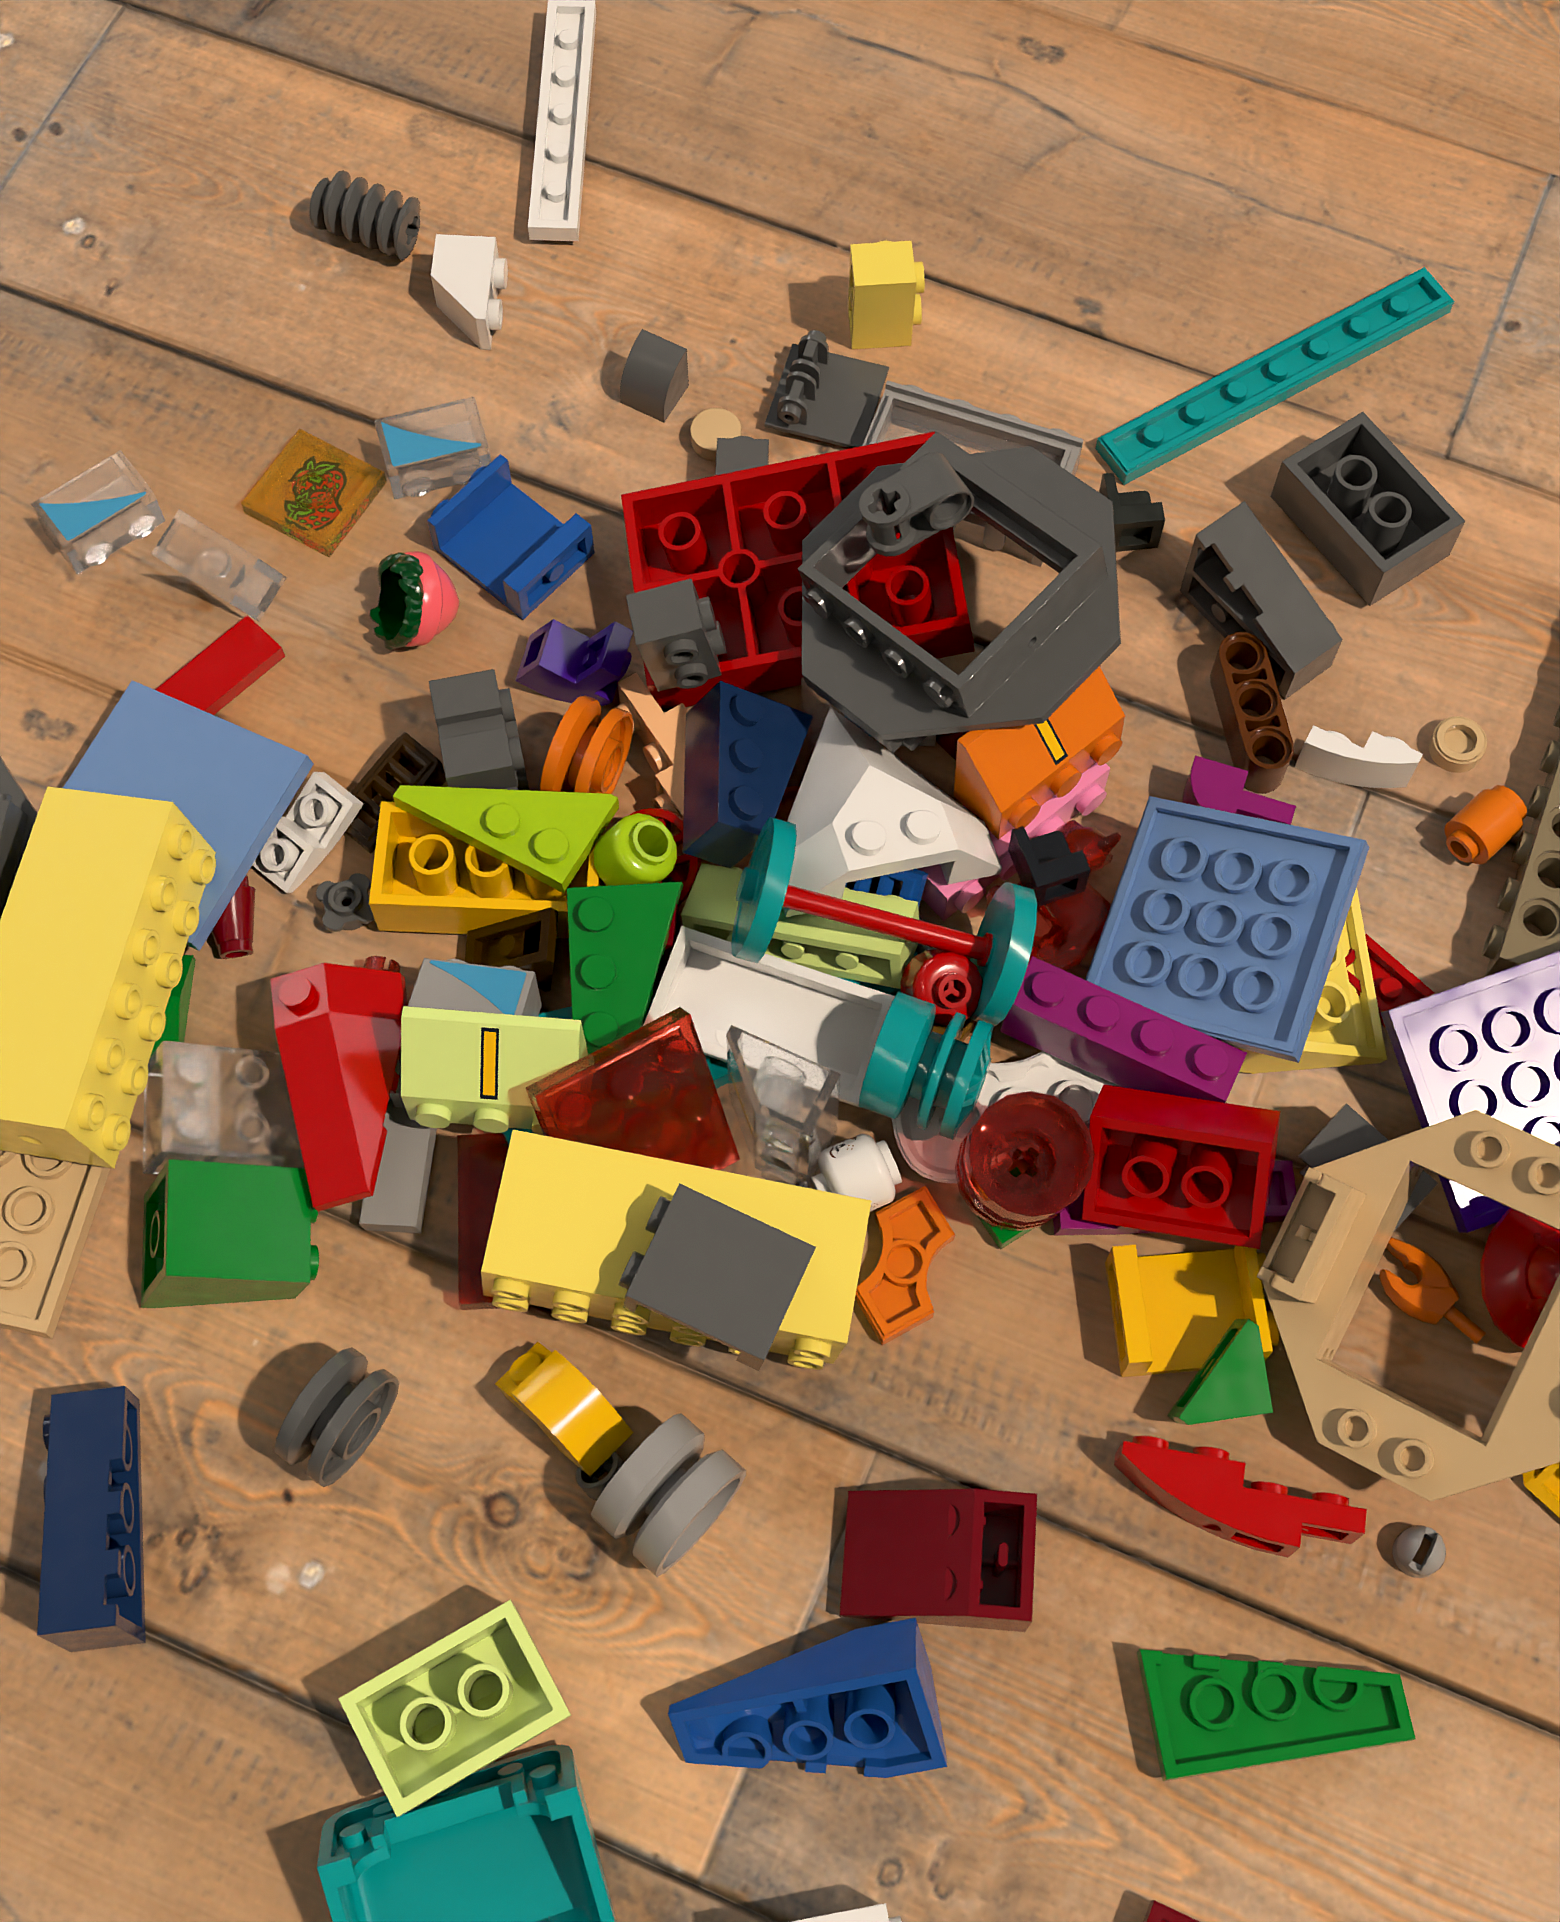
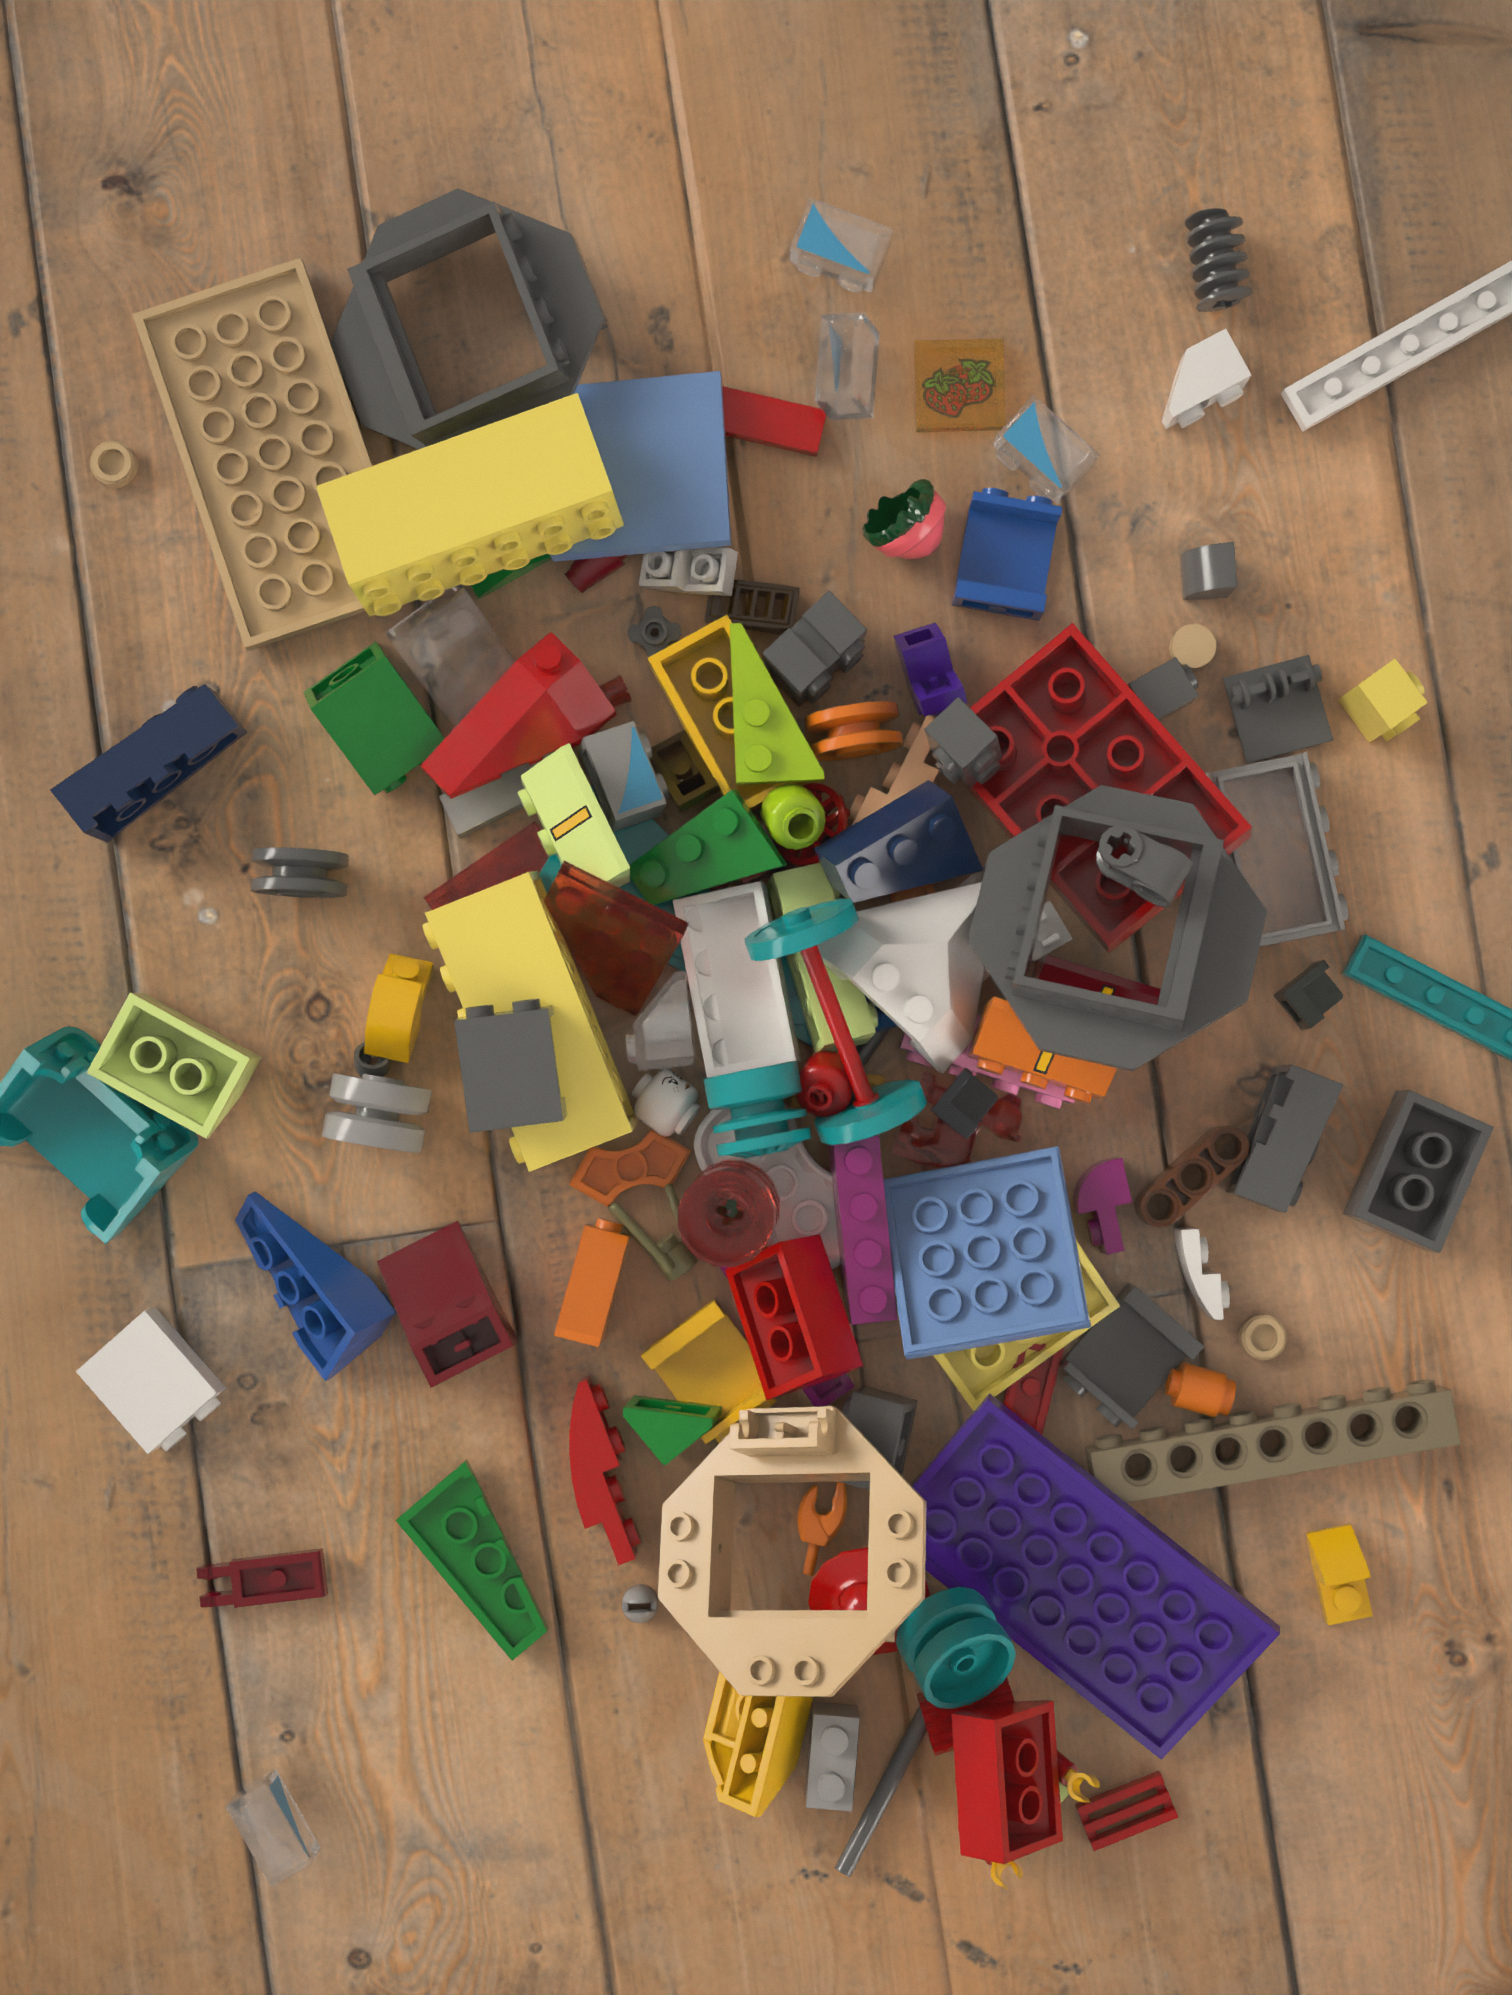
camera: 60 degrees right, 20 degrees up
(1015, 1371) = (593, 1283): none -> orange slope
(1027, 1272) = (669, 1252): none -> olive plant
(1410, 877) = (1128, 1356): none -> dark grey panel

